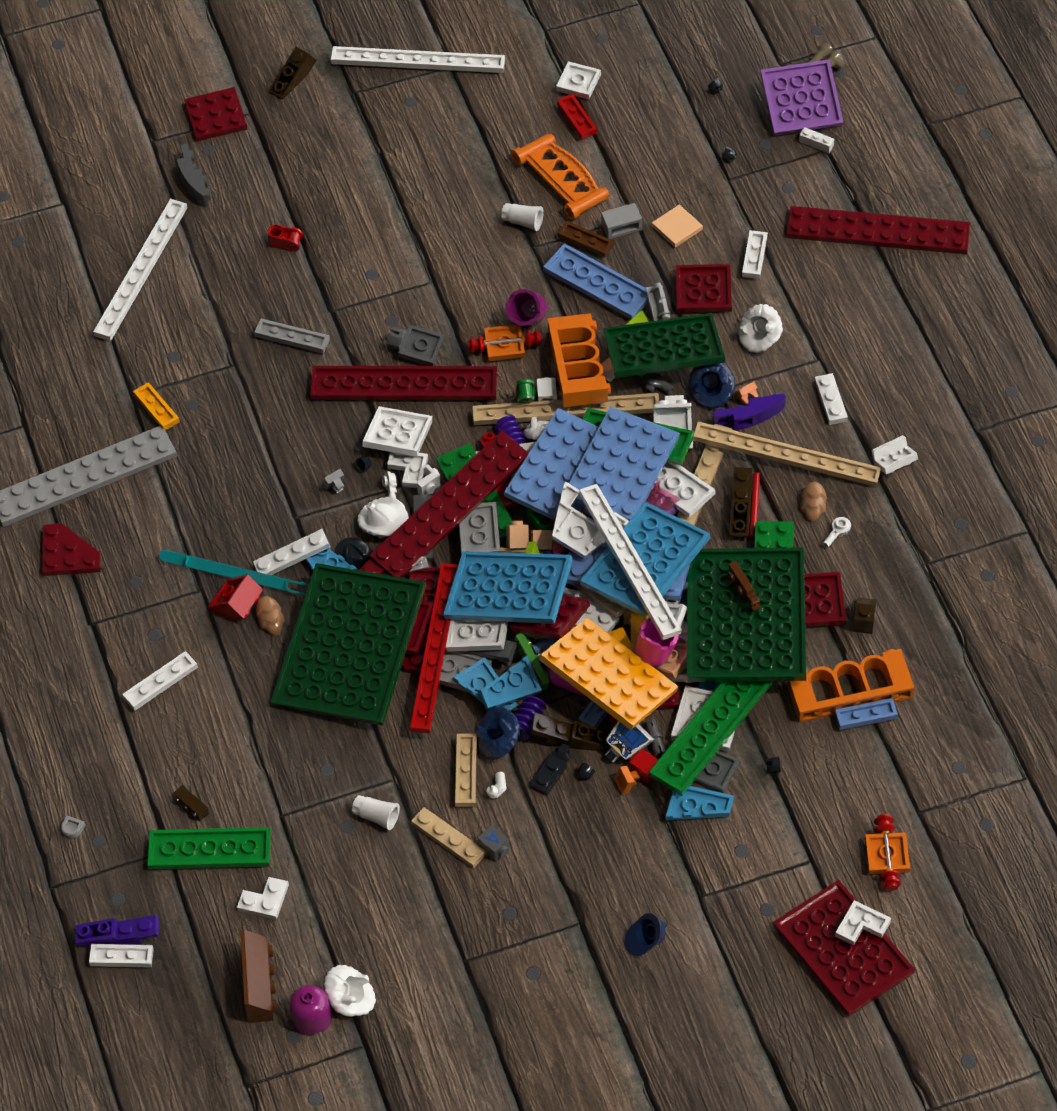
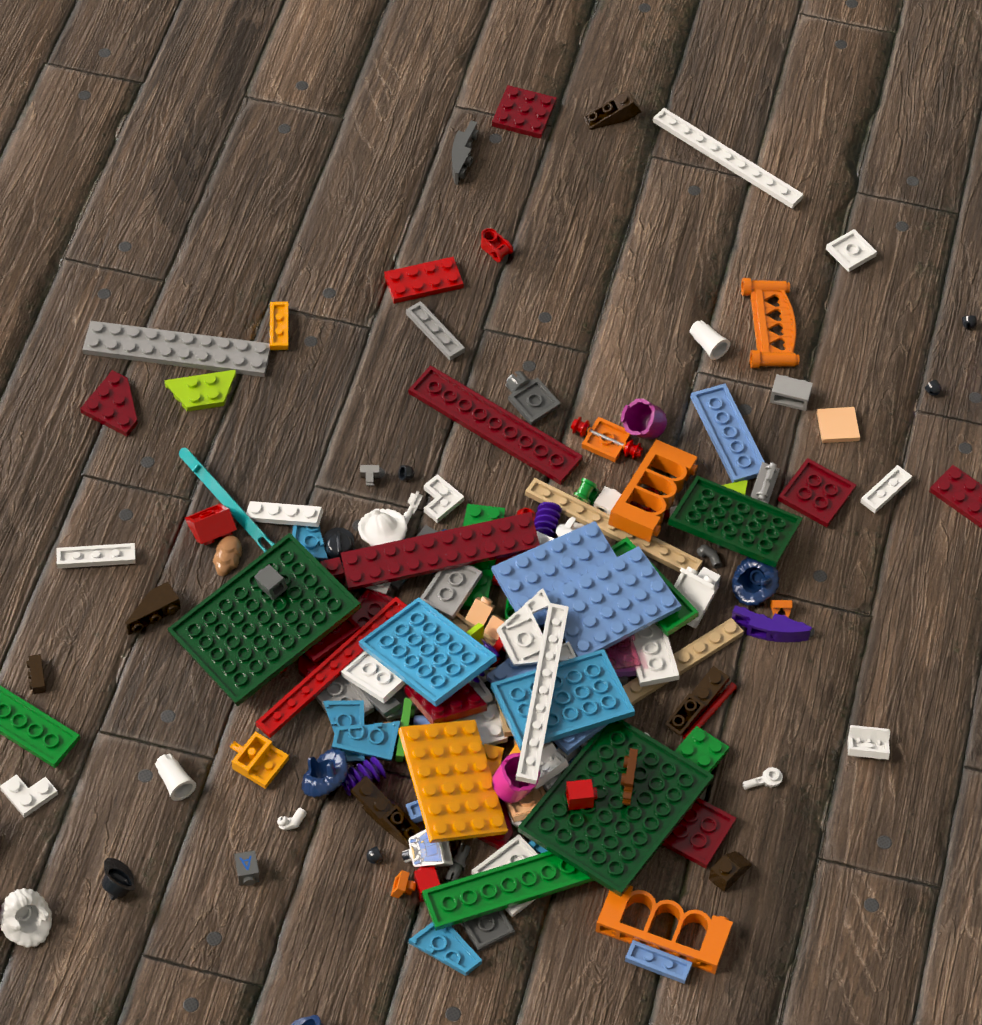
camera: 30 degrees right, 0 degrees up
(133, 497) = (202, 390): none -> lime wing
(140, 270) = (358, 205): white plate -> none
(246, 300) = (423, 280): none -> red plate
(246, 689) = (156, 605): none -> dark brown slope
(335, 609) = (271, 582): none -> dark grey brick
(397, 431) = (454, 462): white plate -> none
(397, 917) = (117, 878): none -> black piece
(430, 482) = (446, 521): white bracket -> none
(432, 756) = (258, 760): none -> light orange plate
(448, 837) = (216, 839): tan plate -> none
(466, 770) = (276, 789): tan plate -> none
(551, 770) = (348, 835): black hinge -> none
(577, 116) = (825, 280): red plate -> none
(585, 239) = (748, 390): reddish brown plate -> none
(717, 622) = (580, 794): none -> red brick
(760, 328) = (837, 556): white piece -> none
(774, 765) = (541, 956): black hinge -> none
(787, 454) = (772, 683): tan plate -> none
(813, 501) = (765, 739): medium nougat arm -> none
(831, 399) = (854, 657): white plate -> none

